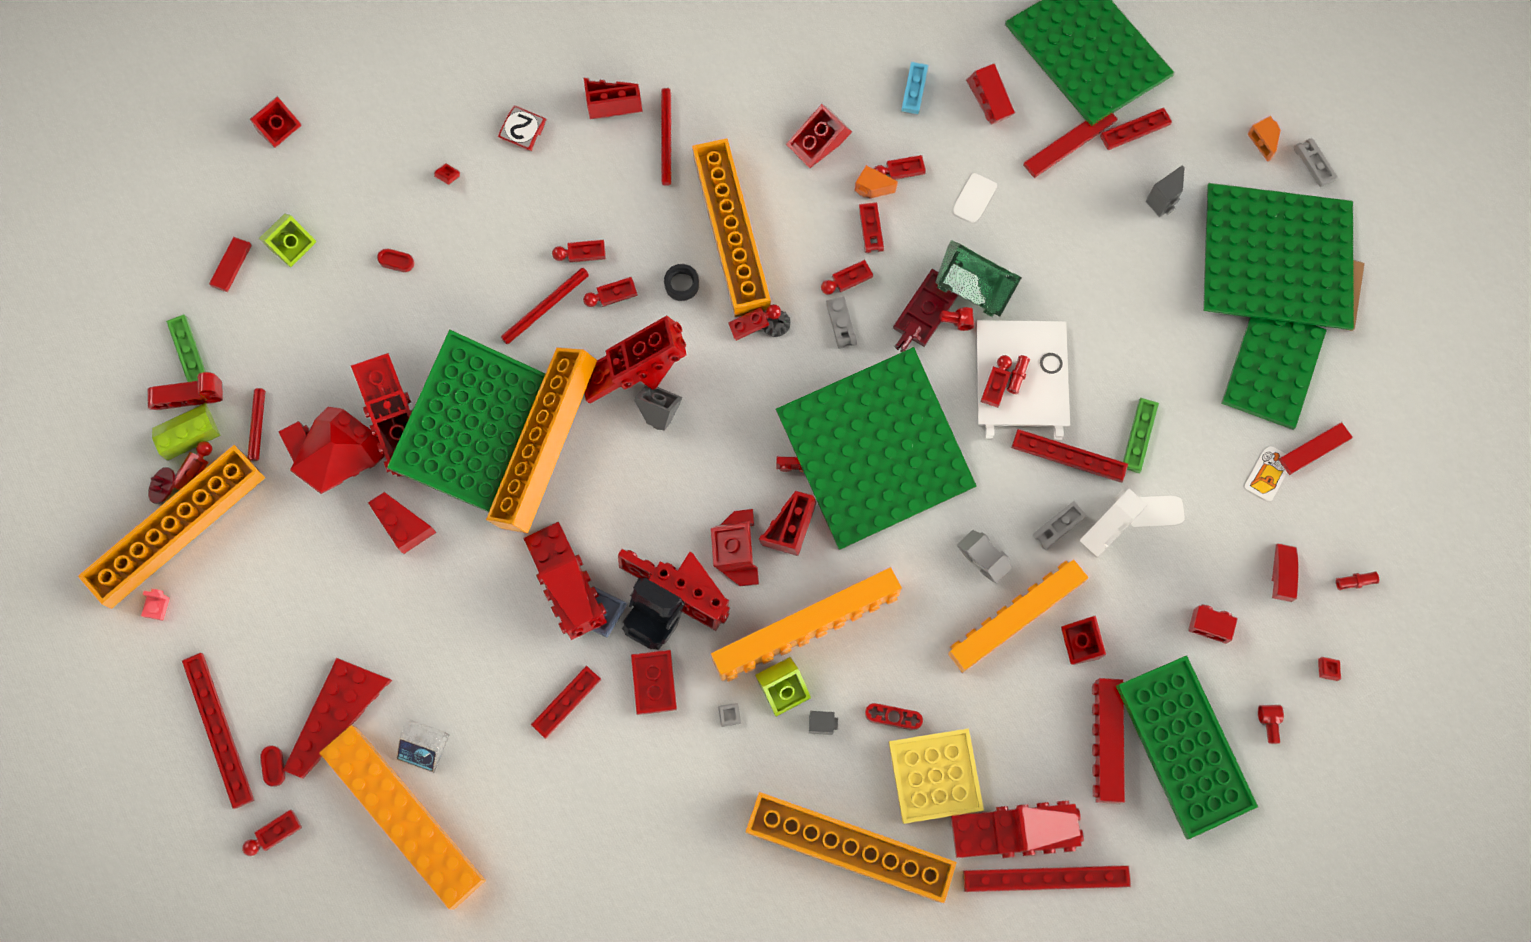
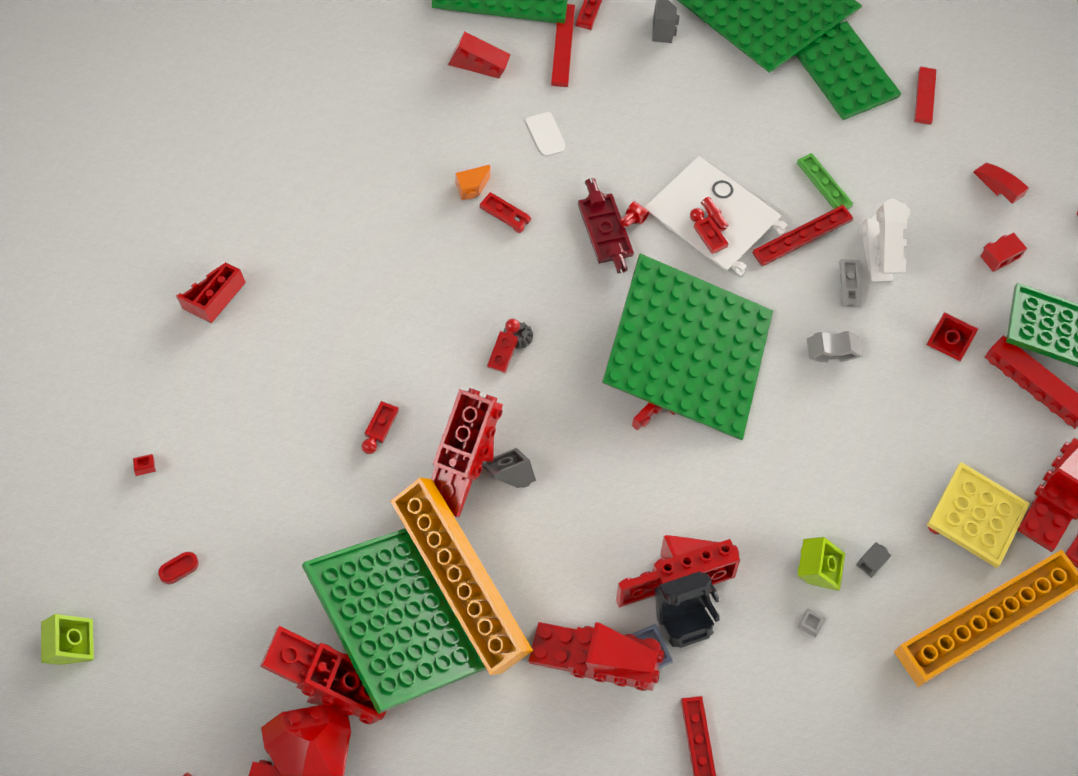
camera: 55 degrees left, 10 degrees down
(230, 264) = (36, 709): red tile -> none
(400, 523) = (424, 749): red wedge -> none
(522, 127) = (165, 377): slope -> none
(544, 306) = (339, 485): red axle -> none
(581, 251) = (320, 420): red plate -> none
(653, 682) = (739, 657): red plate -> none
(666, 136) = (285, 284): red axle -> none
(681, 269) = (417, 357): black tyre -> none
(731, 227) = (412, 299): light orange brick -> none
(733, 548) = (679, 507): red piece -> none
(791, 524) = (698, 453): red wedge -> none
(806, 624) = (789, 508): light orange brick -> none
(818, 136) = (396, 185): red slope -> none
(841, 321) = (561, 292): light grey plate -> none
(848, 278) = (530, 259): red plate -> none
(900, 711) = (904, 515): red beam -> none
(903, 167) = (479, 153): red plate -> none
(914, 88) = (422, 97): medium azure plate -> none
(976, 279) = (618, 177): clear green windscreen -> none
(1018, 615) = (897, 364): light orange brick -> none
(1267, 474) = (918, 136): sticker -> none
(1357, 580) = (1039, 148): red pin -> none

